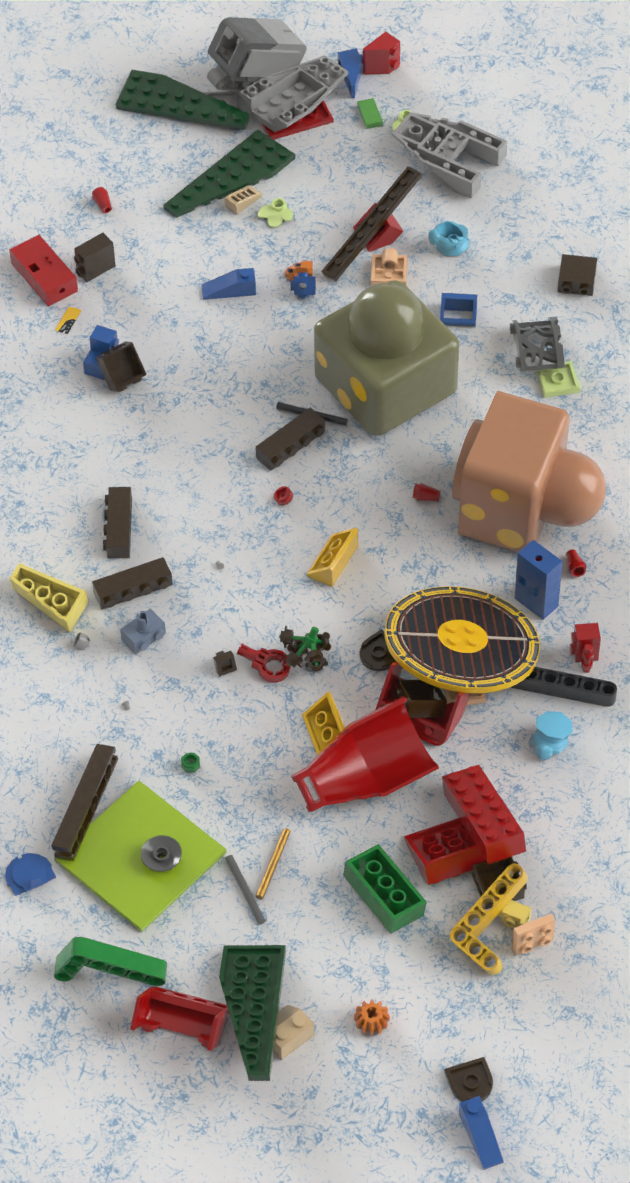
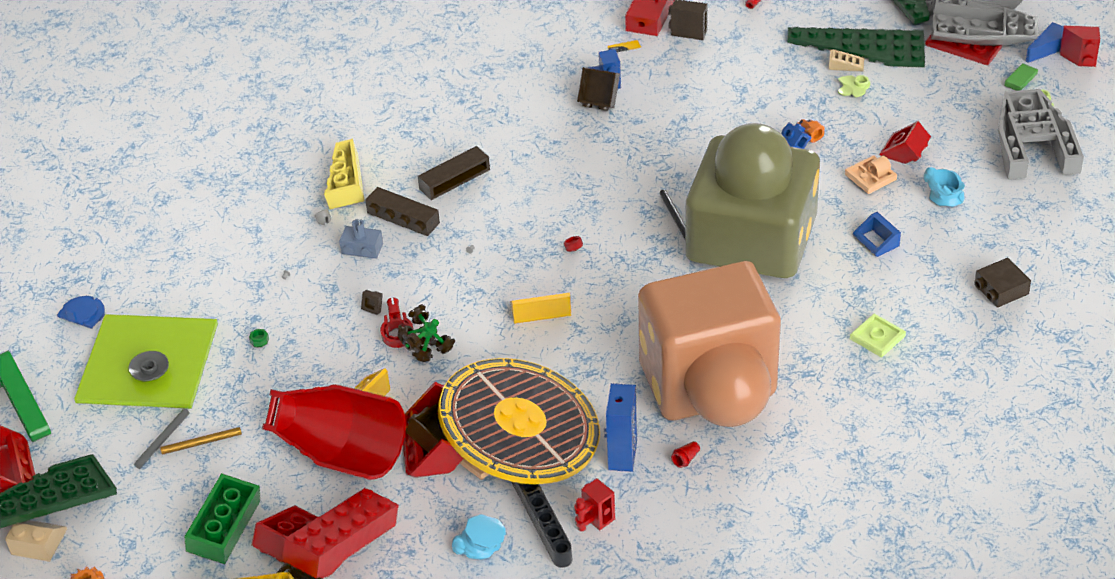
camera: 55 degrees right, 10 degrees down
(84, 802) = (178, 297): dark brown piece -> none
(232, 284) = (753, 102): blue slope -> none
(290, 439) = (633, 215): dark brown brick -> none
(371, 223) = (896, 131): dark brown tile -> none
(546, 329) = (913, 296): dark grey fence -> none

